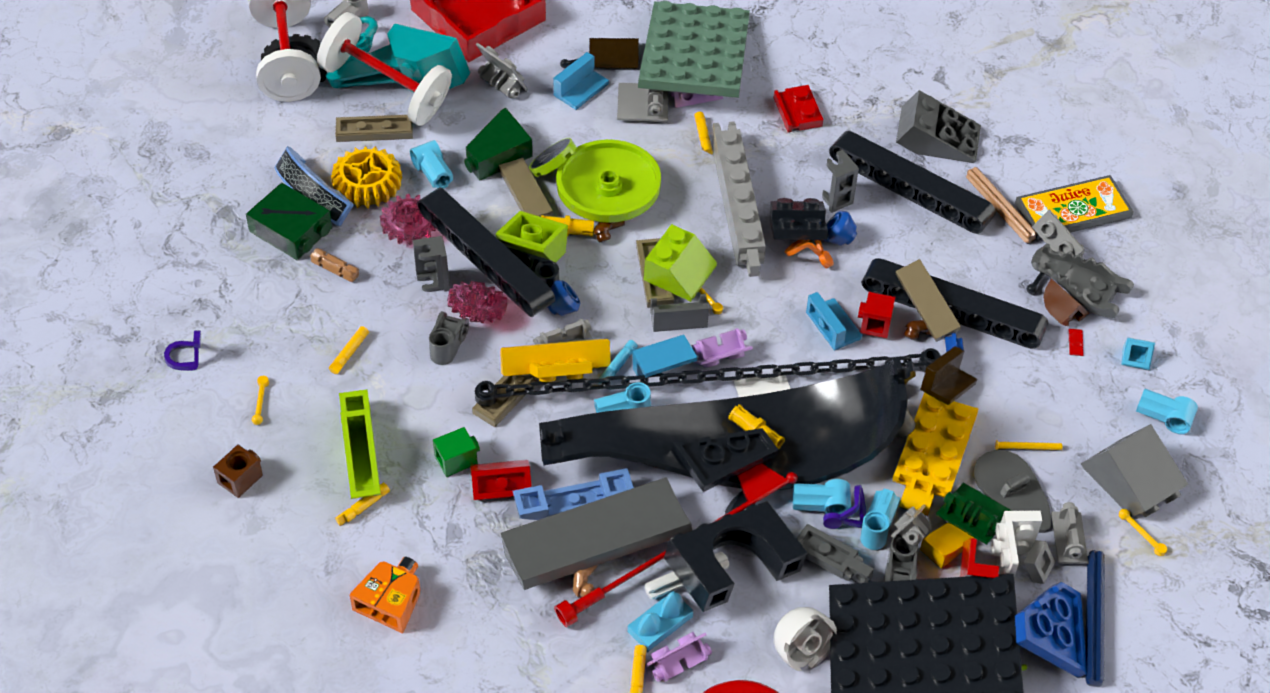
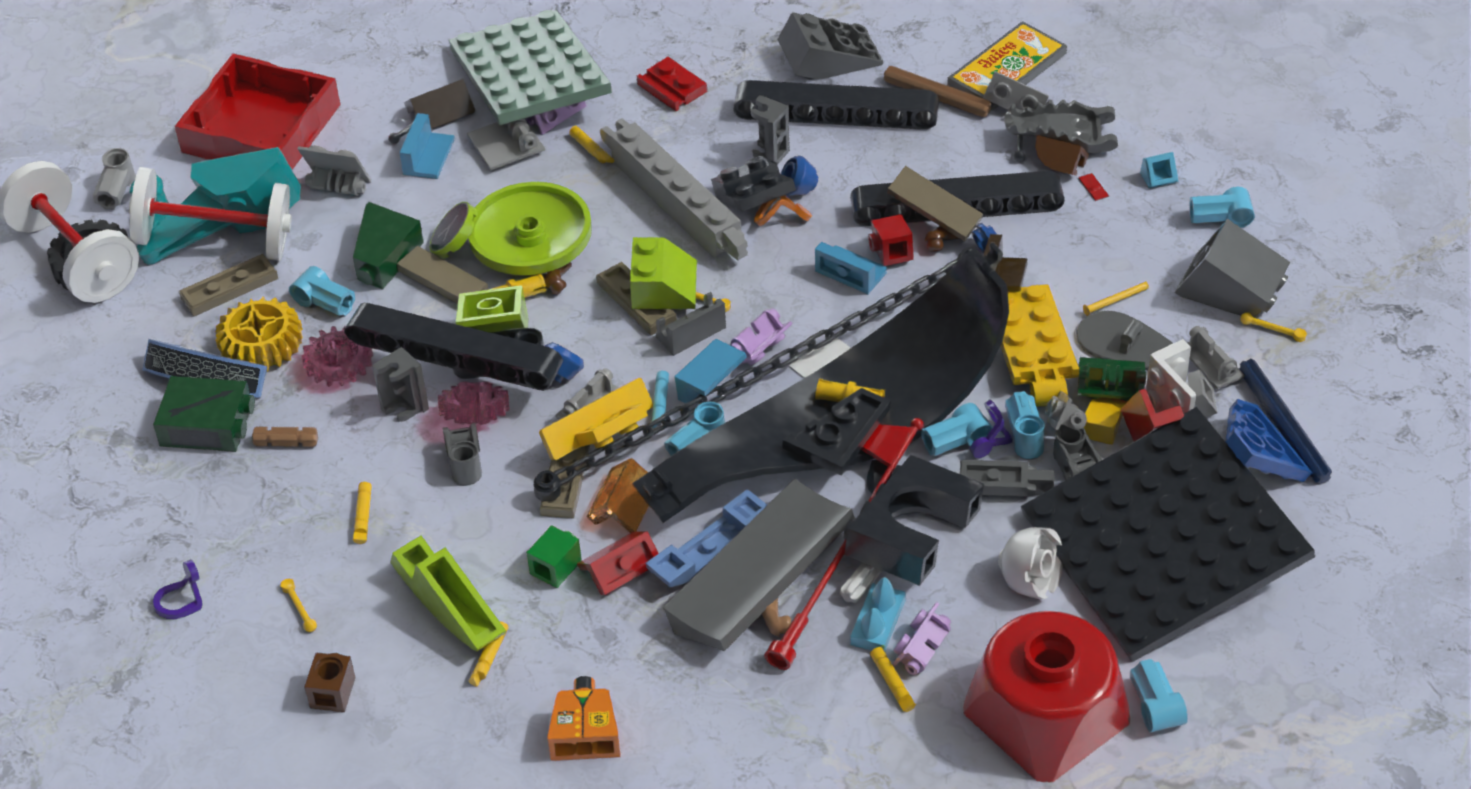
camera: 25 degrees left, 5 degrees down
(526, 429) = (619, 498): none -> clear orange panel

